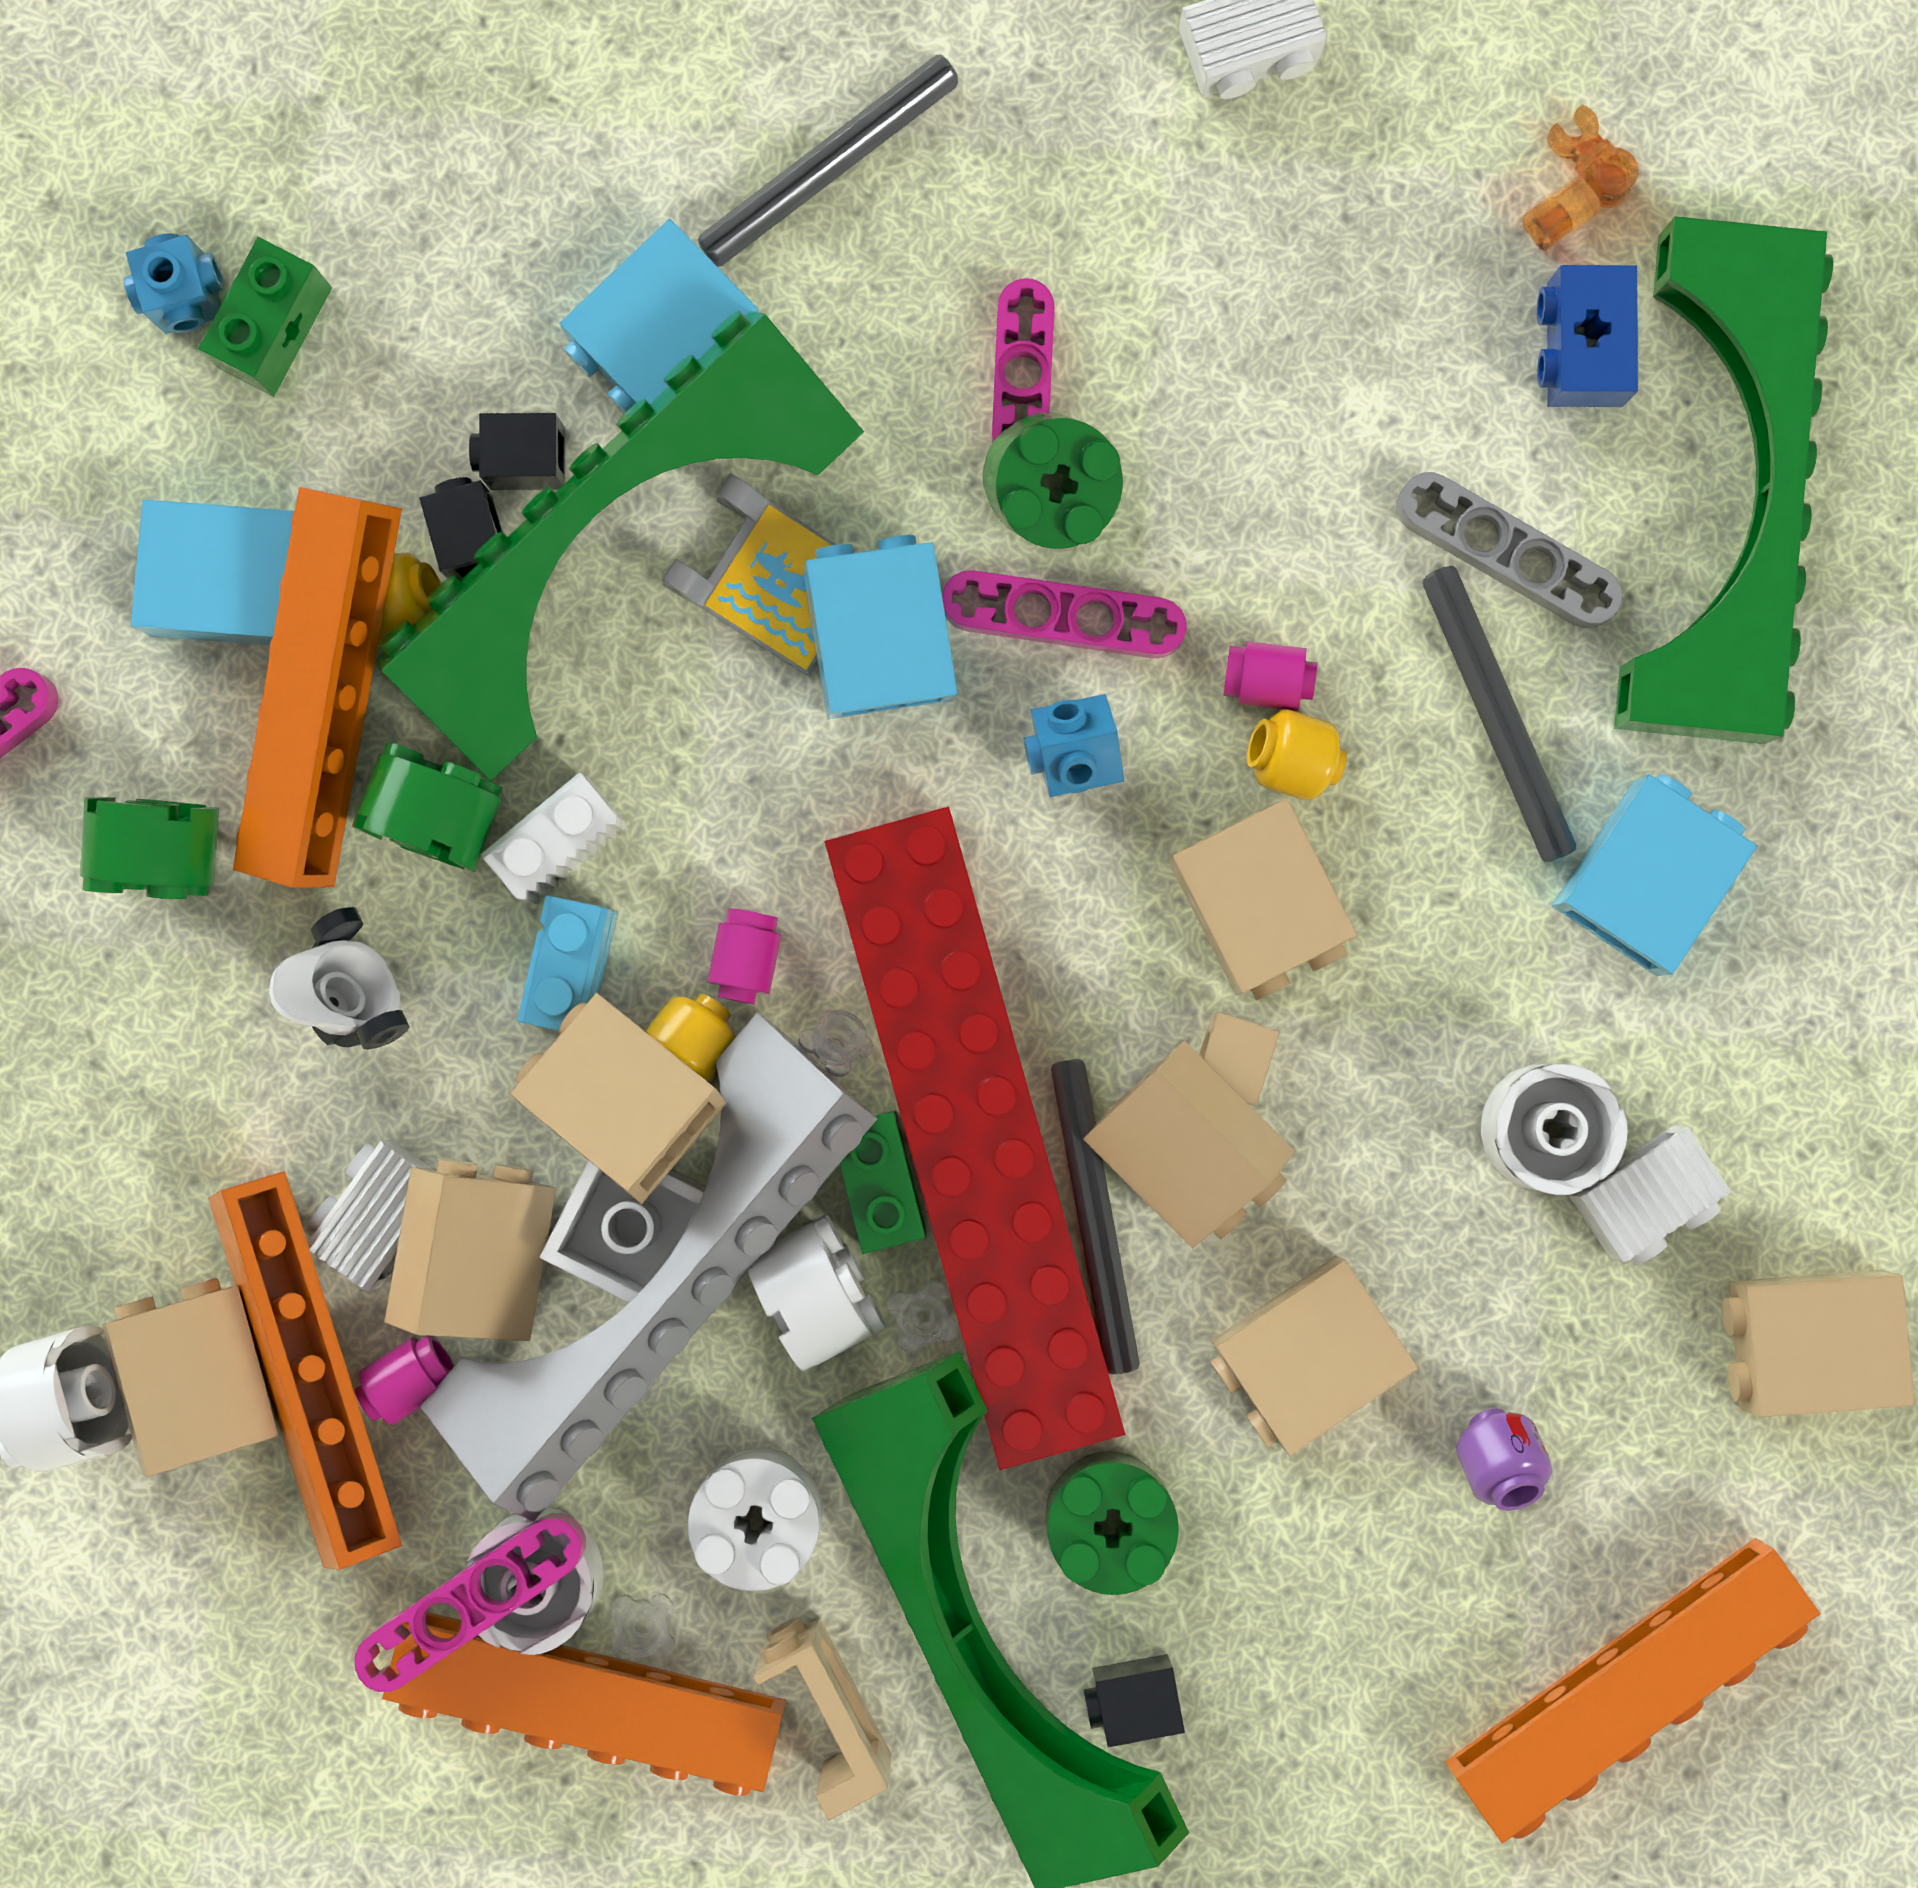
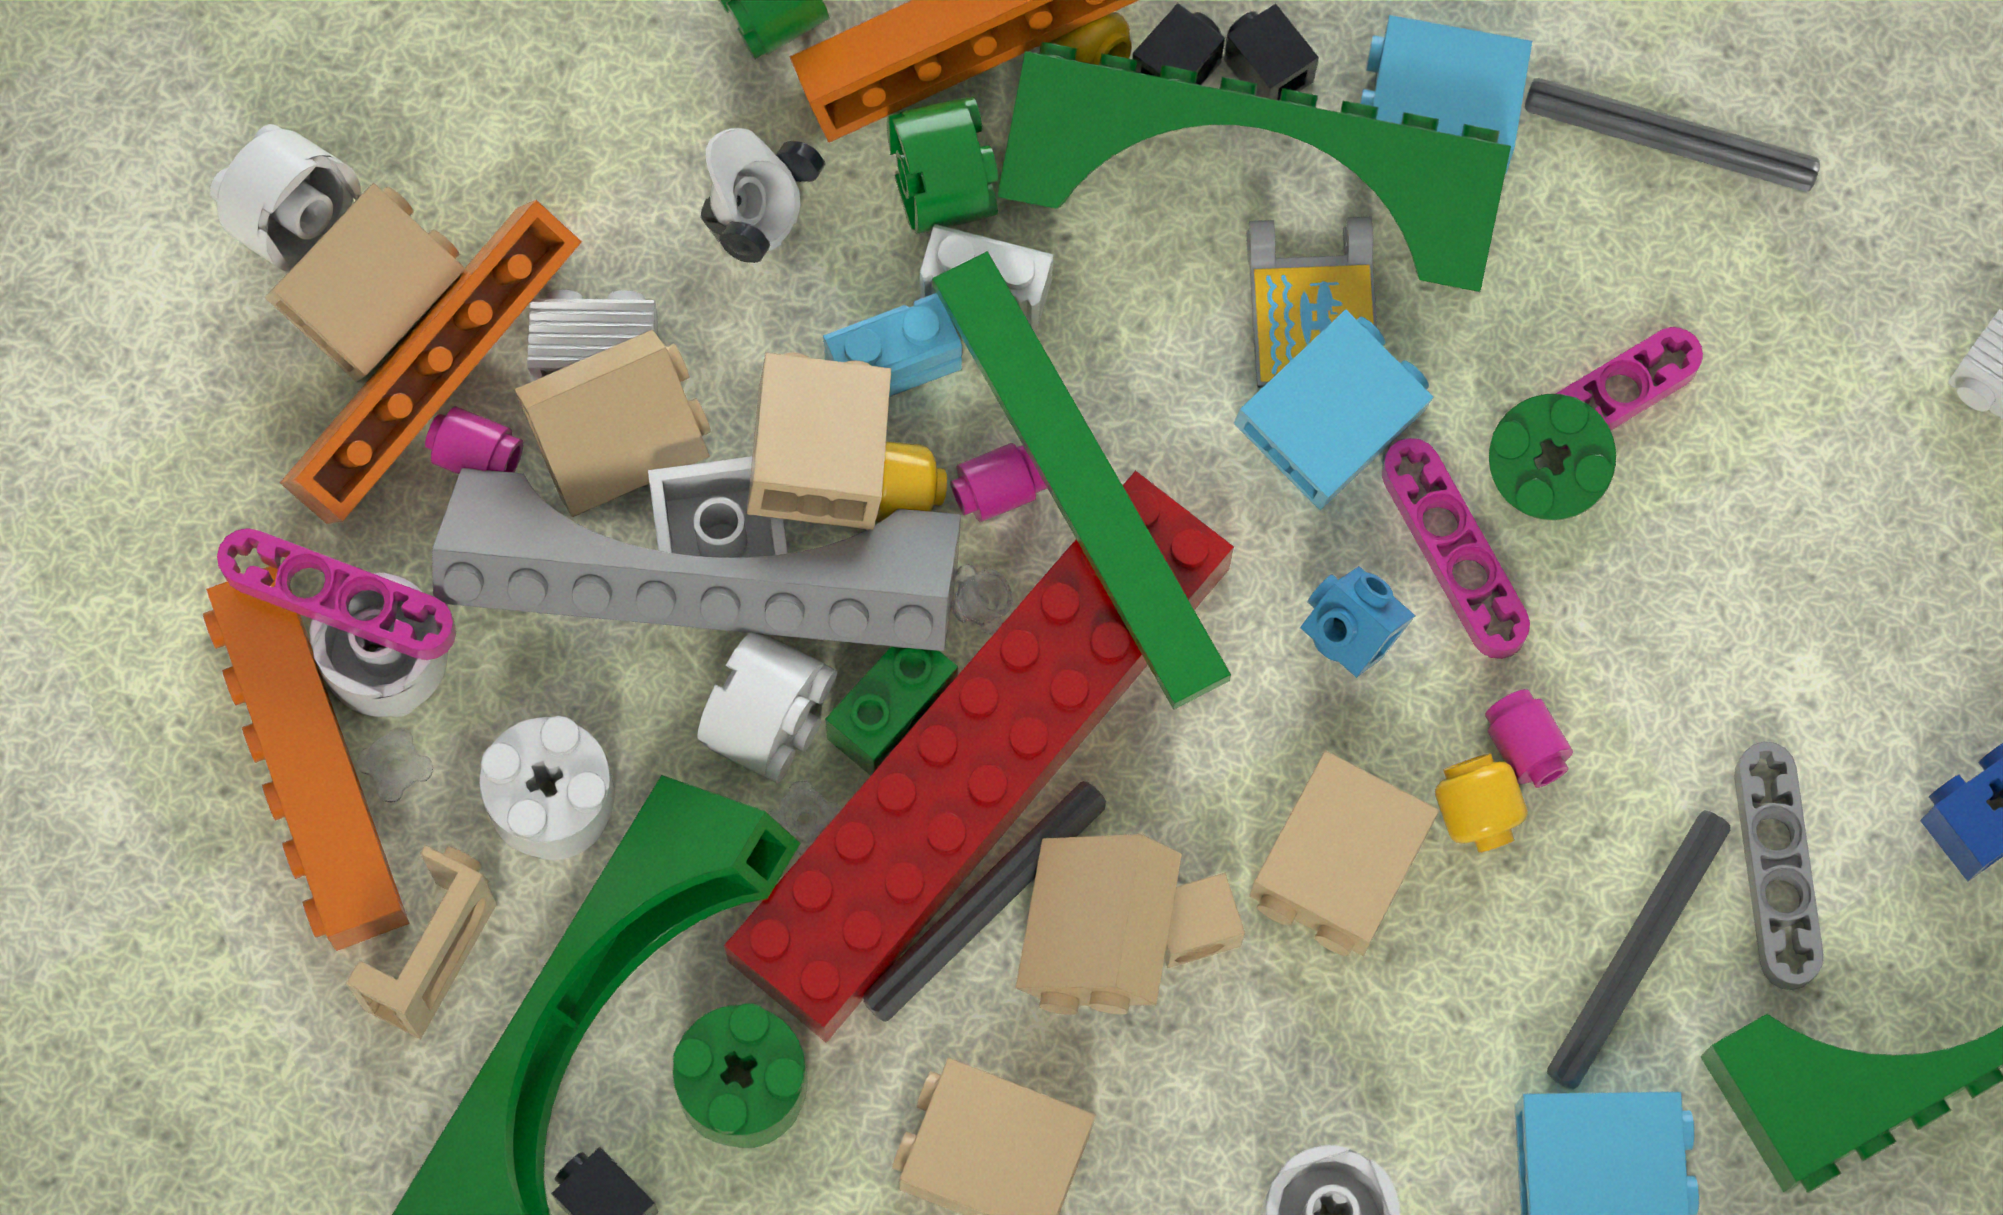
camera: 50 degrees right, 15 degrees down
(802, 897) = (1081, 481): none -> green tile

